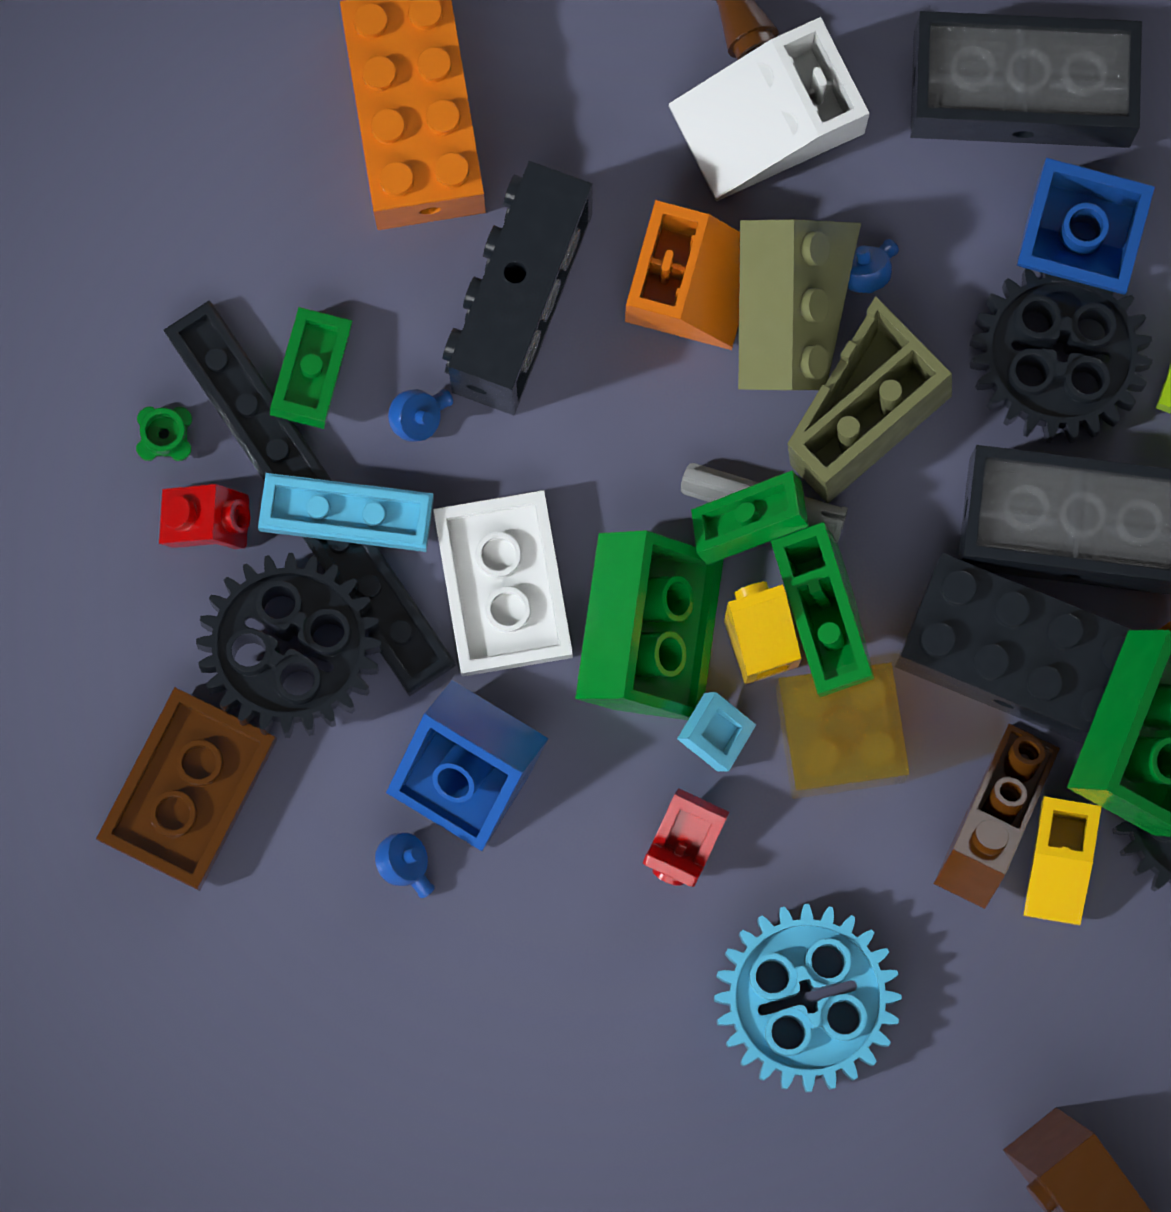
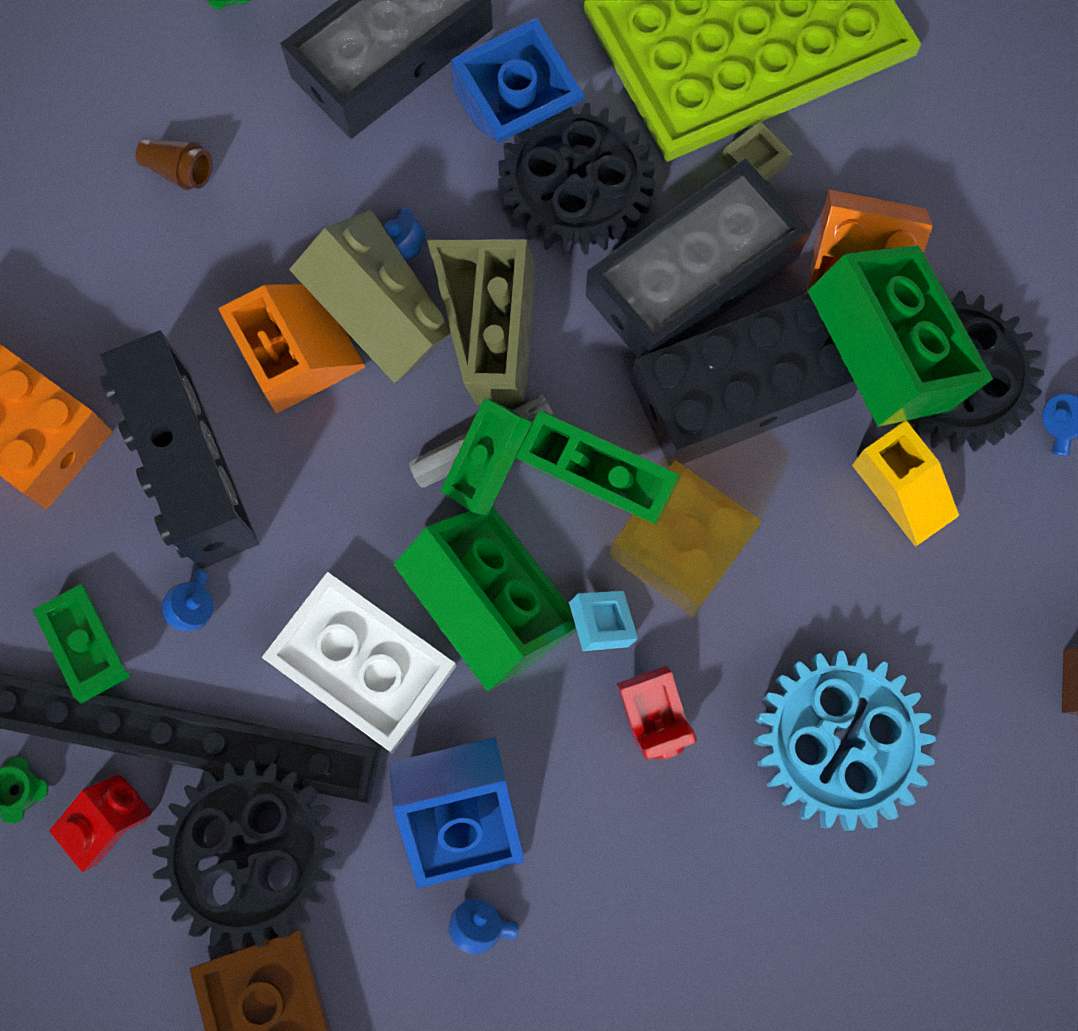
camera: 45 degrees left, 5 degrees down
(346, 512) = (199, 719): medium azure tile -> none
(762, 632) = (568, 522): yellow slope -> none
(771, 110) = (243, 192): white slope -> none
(997, 817) = (839, 501): reddish brown slope -> none

